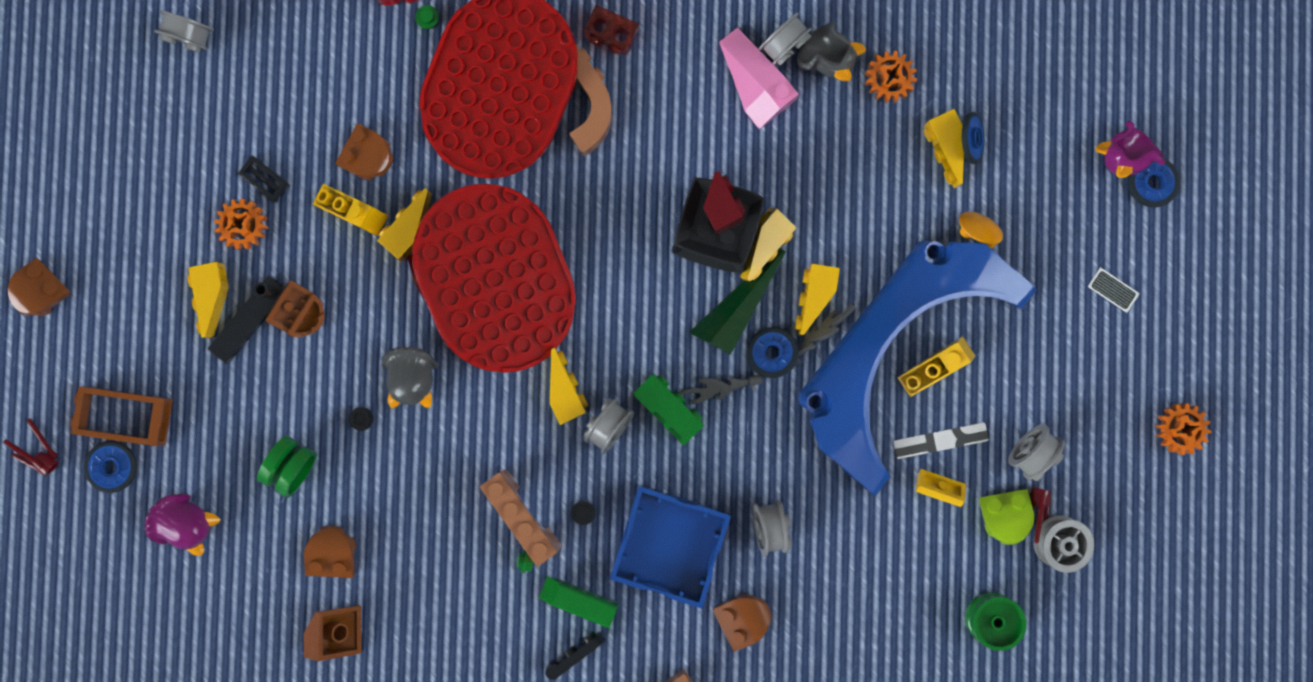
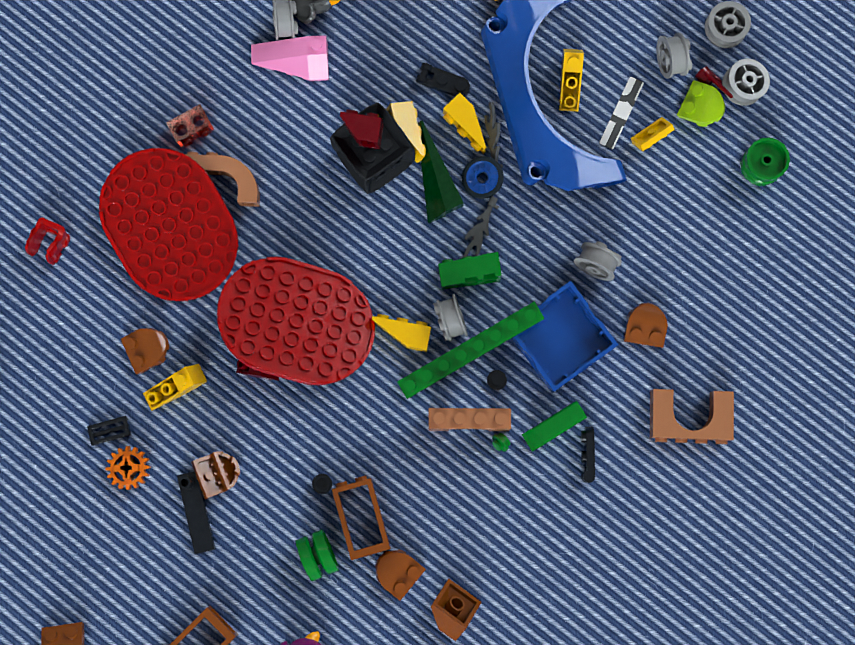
camera: 55 degrees left, 5 degrees down
(209, 291) = (156, 522): yellow slope -> none
(332, 512) = (385, 545): none -> dark orange window
(400, 235) = (219, 361): yellow slope -> none
(409, 376) = (317, 428): dark grey hair -> none
(427, 17) = (86, 240): green plate -> none
(592, 468) = (471, 350): none -> green plate
(841, 242) = (443, 81): none -> black plate
(1096, 482) = (727, 24): none -> light grey wheel

